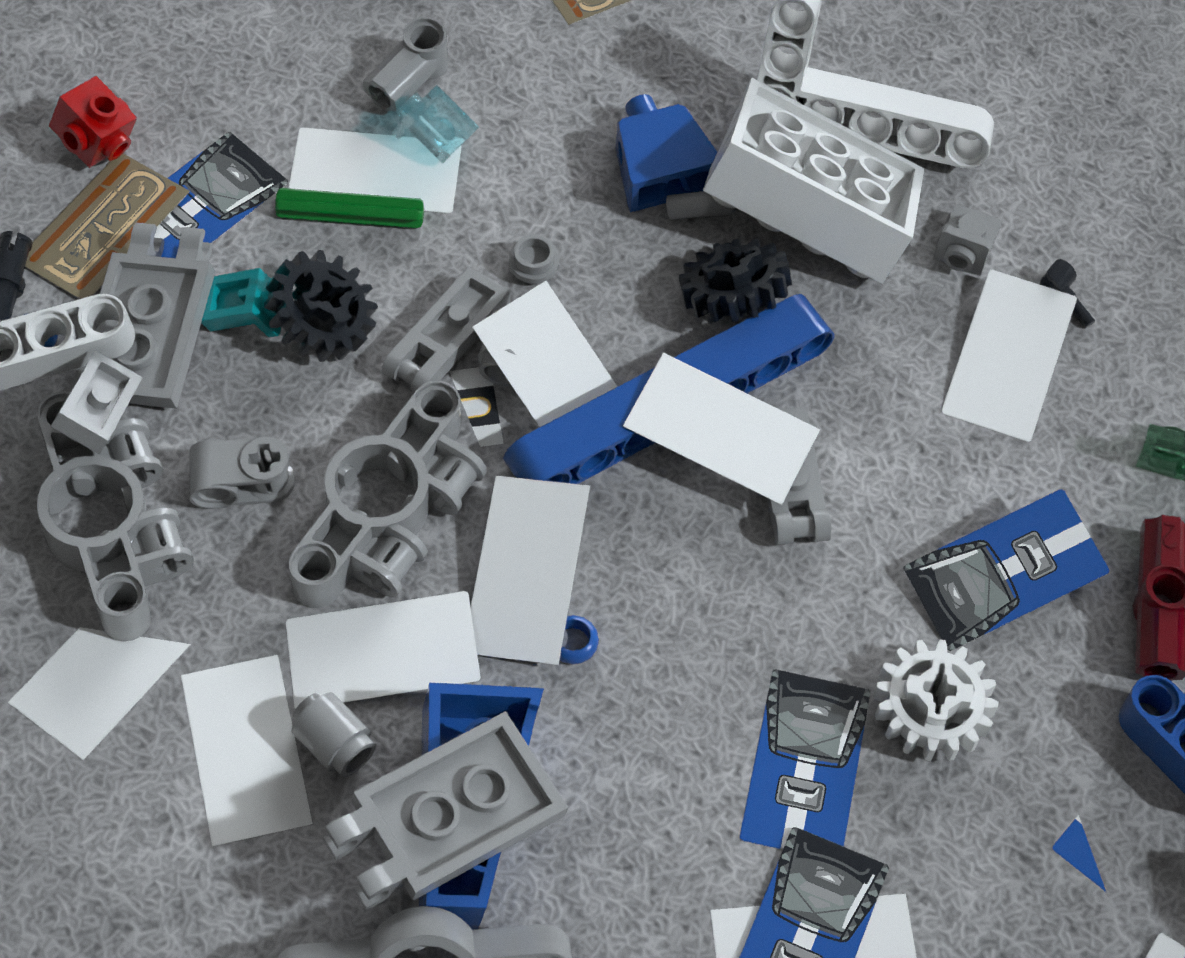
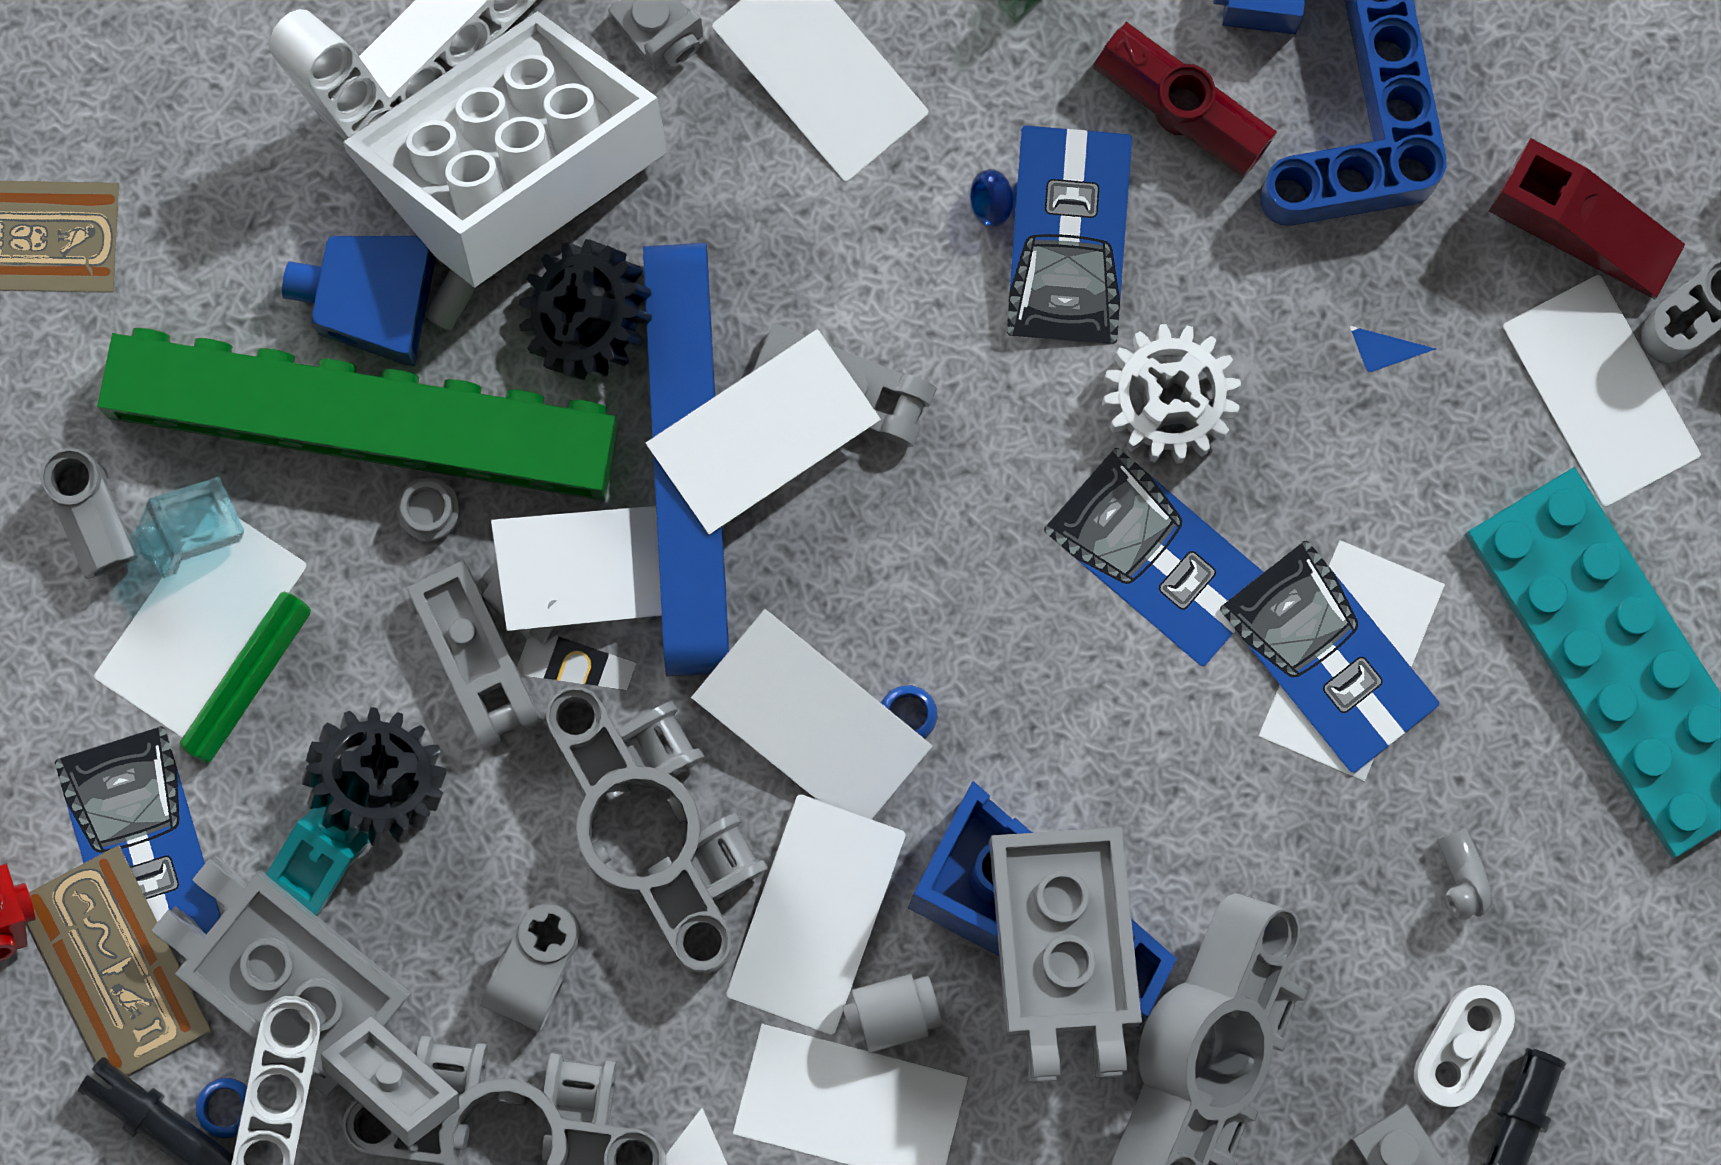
camera: 60 degrees left, 20 degrees up
(575, 193) = (359, 415): none -> green brick
(996, 505) = (991, 198): none -> clear blue piece

